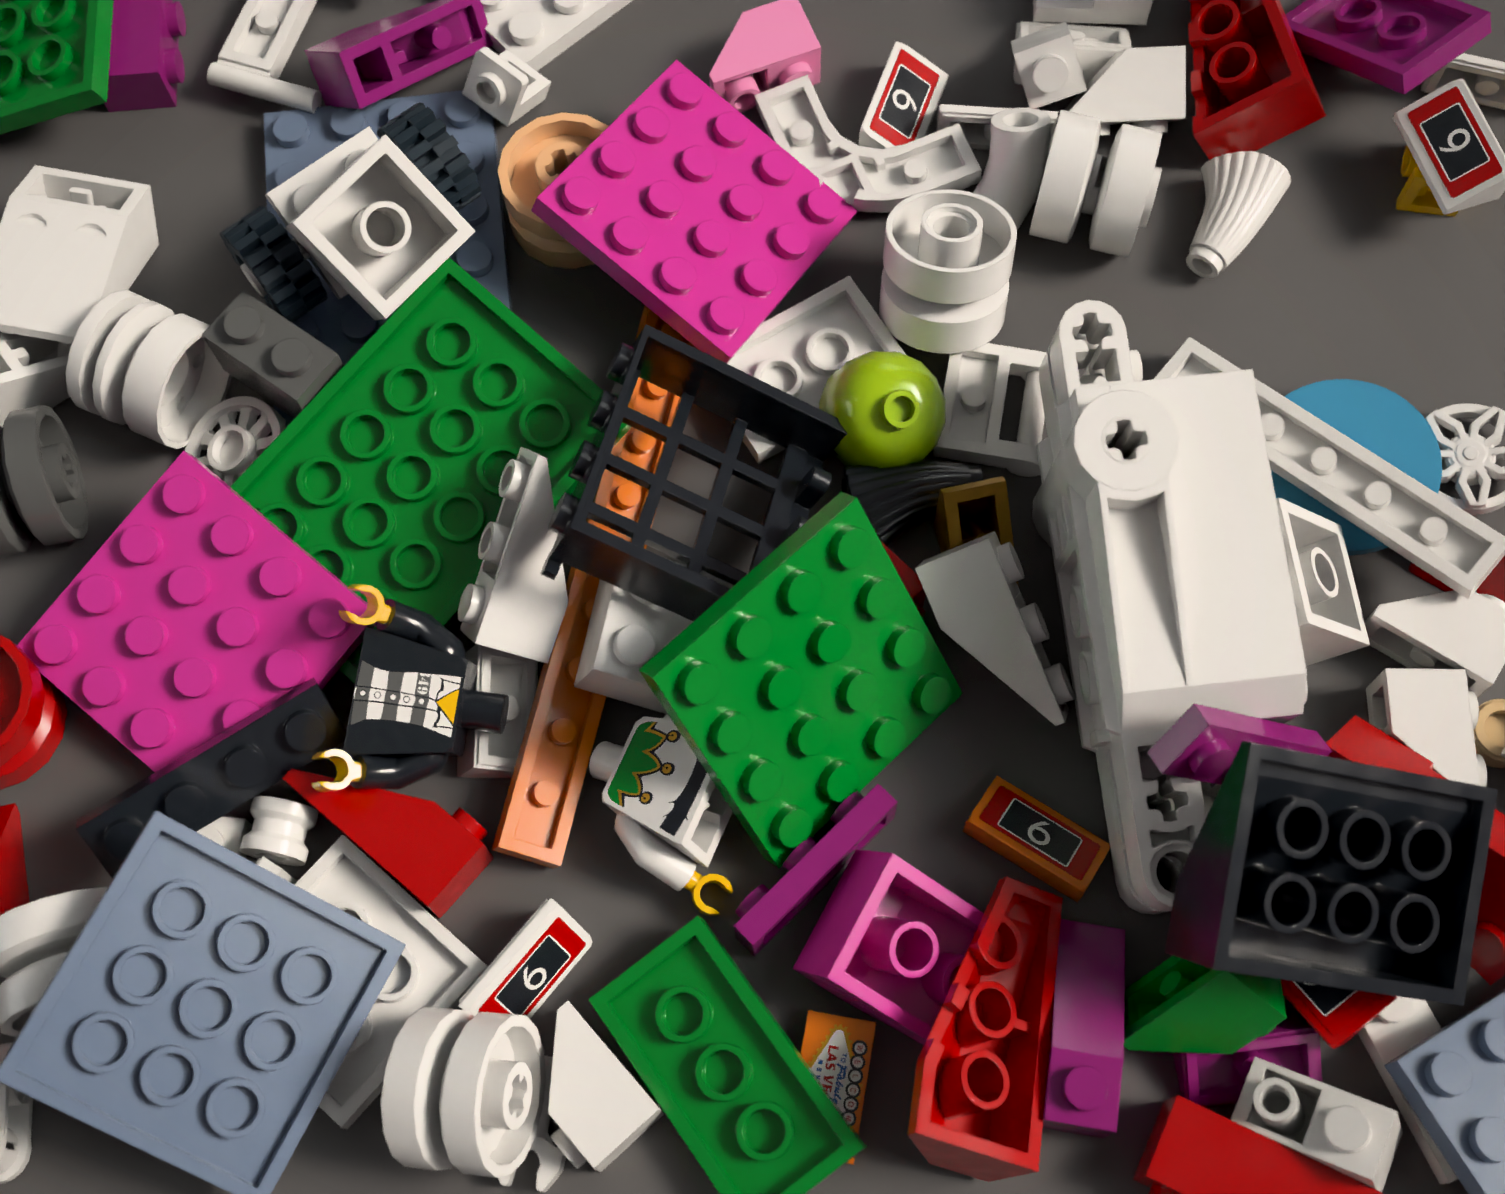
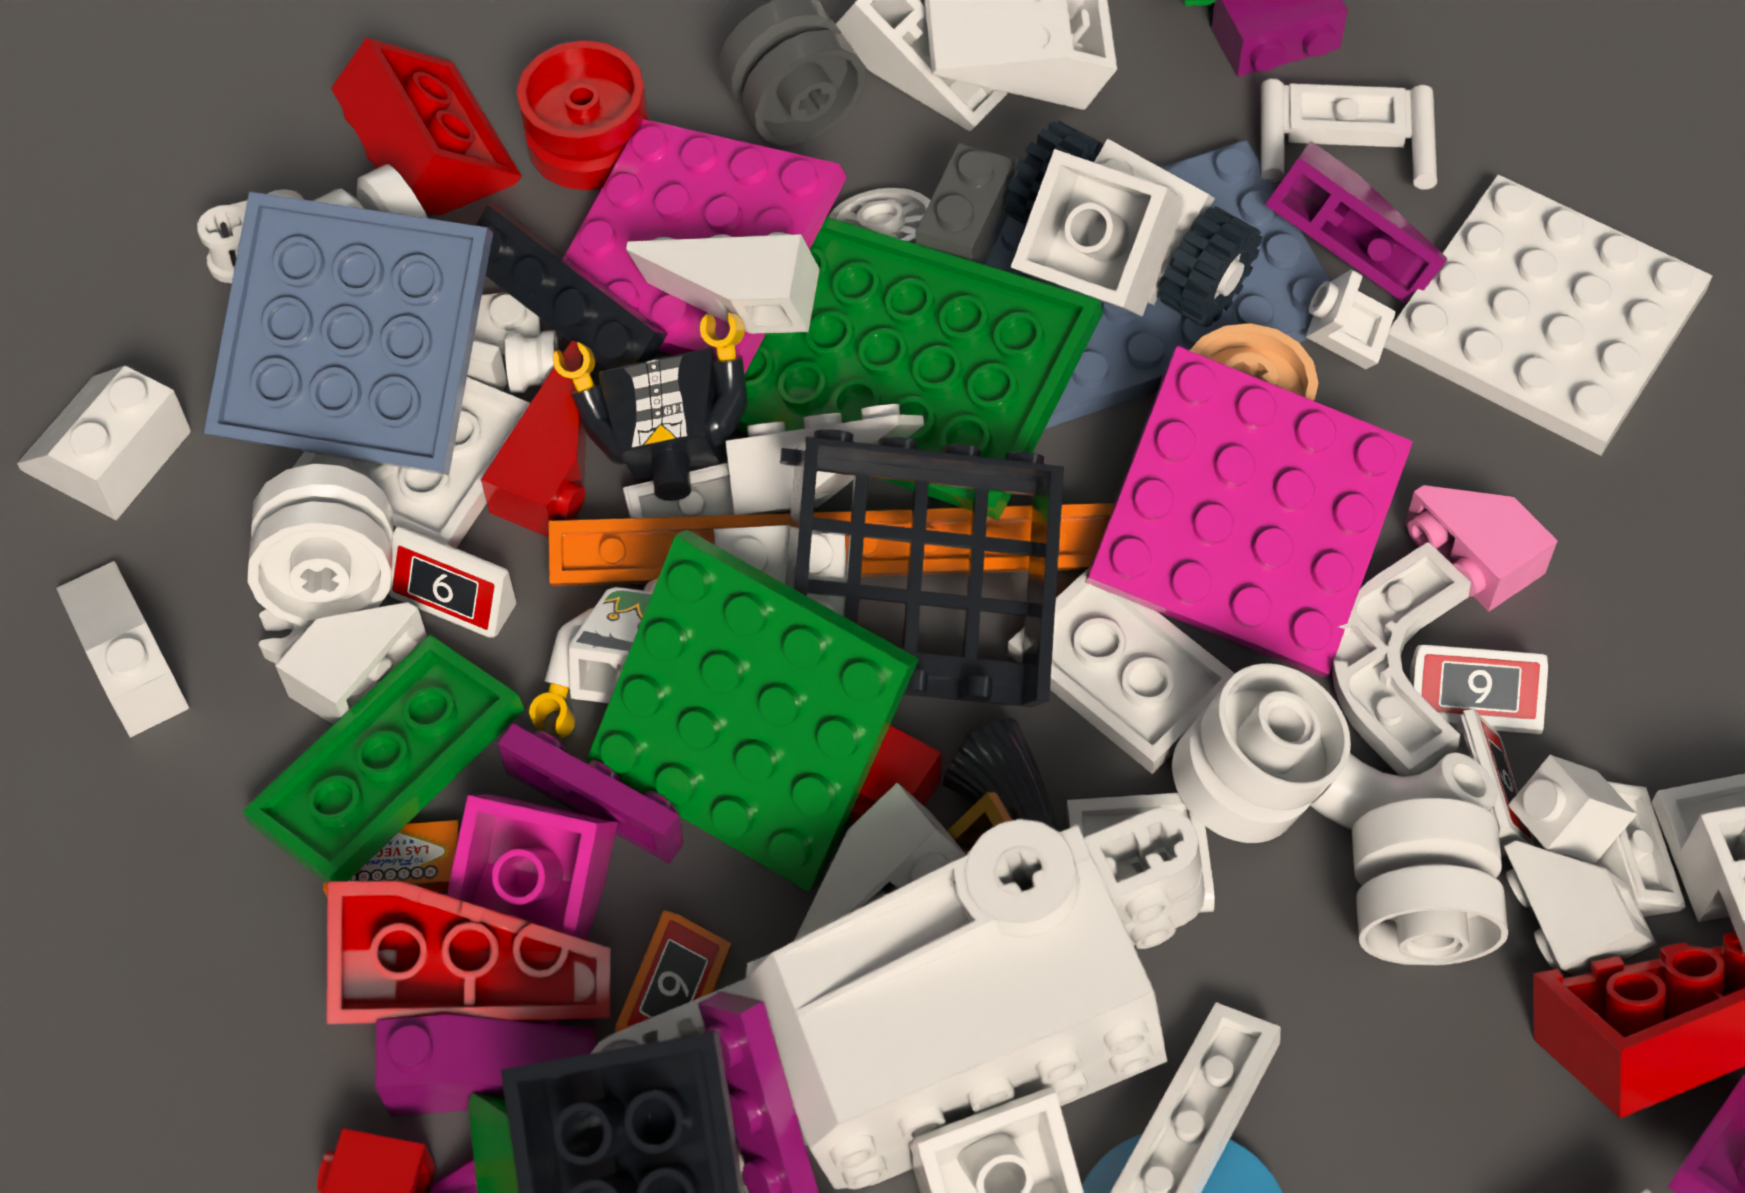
camera: 75 degrees right, 10 degrees down
(144, 368) = (922, 114): white wheel -> none
(300, 579) = (759, 278): none -> white slope
(887, 408) = (1087, 739): lime cylinder -> none
(1239, 198) = (1484, 1057): white piece -> none

